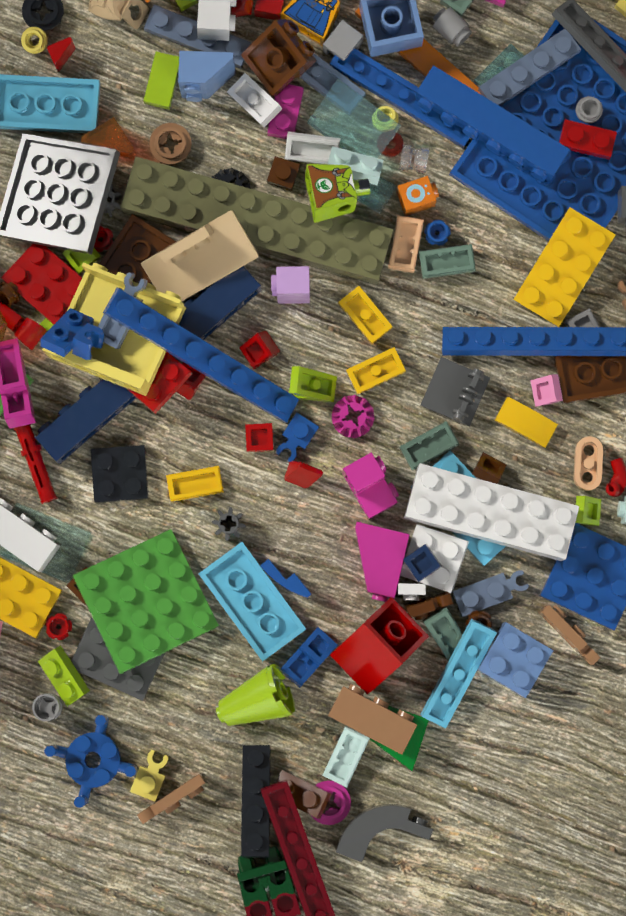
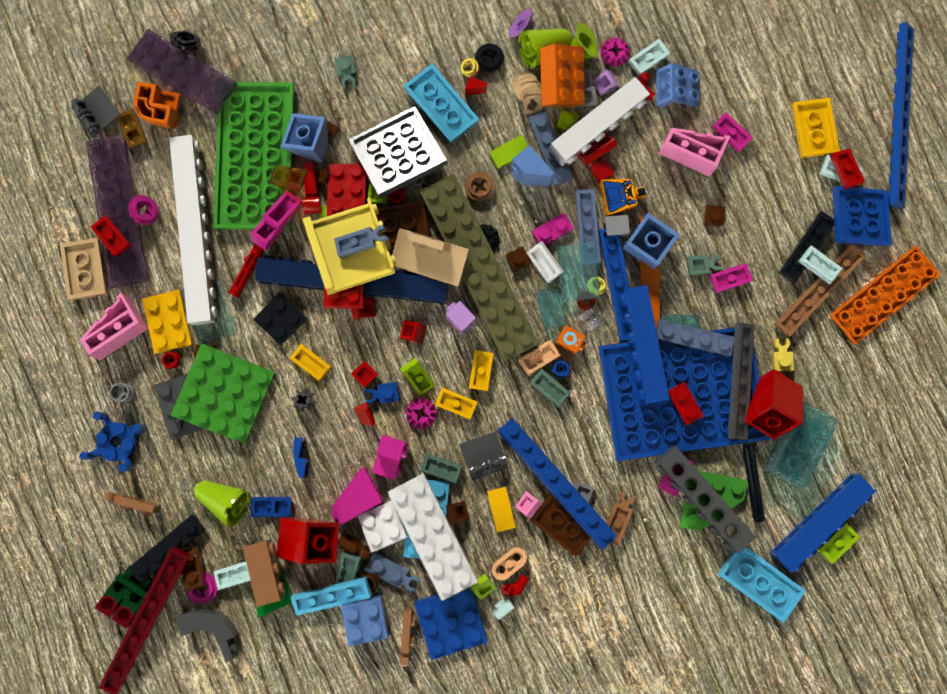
camera: 45 degrees right, 0 degrees up
(63, 676) = (146, 386): lime plate -> none
(75, 333) = (325, 226): blue plate -> none
(110, 136) = (453, 153): clear orange slope -> none
(149, 780) = (132, 480): light yellow plate -> none
(200, 355) = (375, 303): blue plate -> none
(252, 601) = (273, 450): medium azure plate -> none
(254, 100) = (542, 208): white plate -> none
(279, 56) = (577, 199): reddish brown plate -> none
(333, 190) = (529, 293): torso -> none
(361, 165) = (555, 292): light aqua plate -> none
(411, 591) = (353, 529): white plate -> none
(422, 562) = (372, 523): dark blue plate -> none
(451, 26) = (679, 275): light grey brick -> none
(564, 267) = (604, 454): yellow plate -> none
(589, 109) = (702, 390): light grey plate -> none

